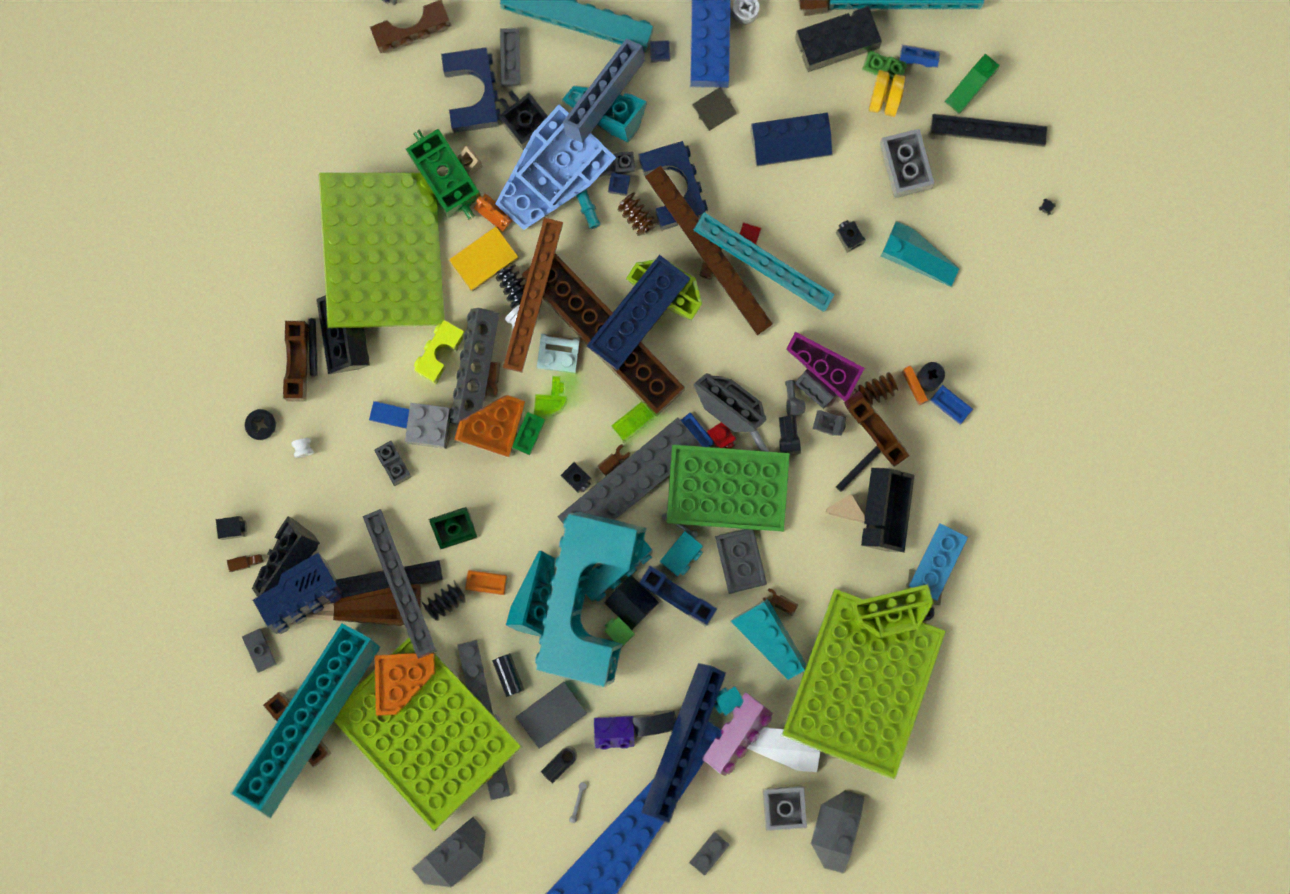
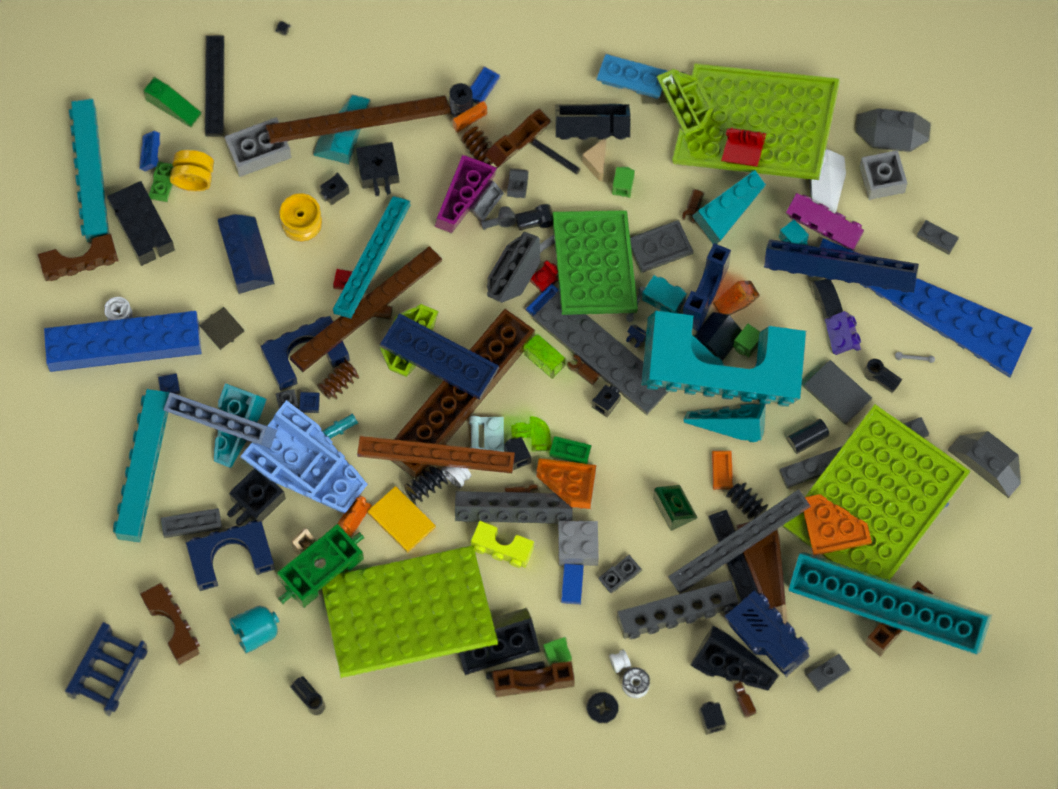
camera: 100 degrees left, 15 degrees down
(271, 458) = (638, 675): none -> white wheel
(319, 147) = (307, 695): none -> black piece
(321, 389) = (557, 651): none -> bright green panel
(356, 560) = (684, 601): none -> dark grey brick
(389, 103) = (255, 627): none -> teal cylinder
(533, 380) = (522, 455): none -> black brick
(644, 519) = (637, 333): none -> dark blue tile
(667, 628) = (737, 298): none -> clear orange slope
(817, 533) = (623, 182): none -> bright green brick
(822, 186) = (300, 217): none -> yellow wheel
(832, 663) = (743, 147): none -> red hinge
(860, 291) = (378, 166): none -> black hinge
(923, 266) = (357, 119): none -> reddish brown plate

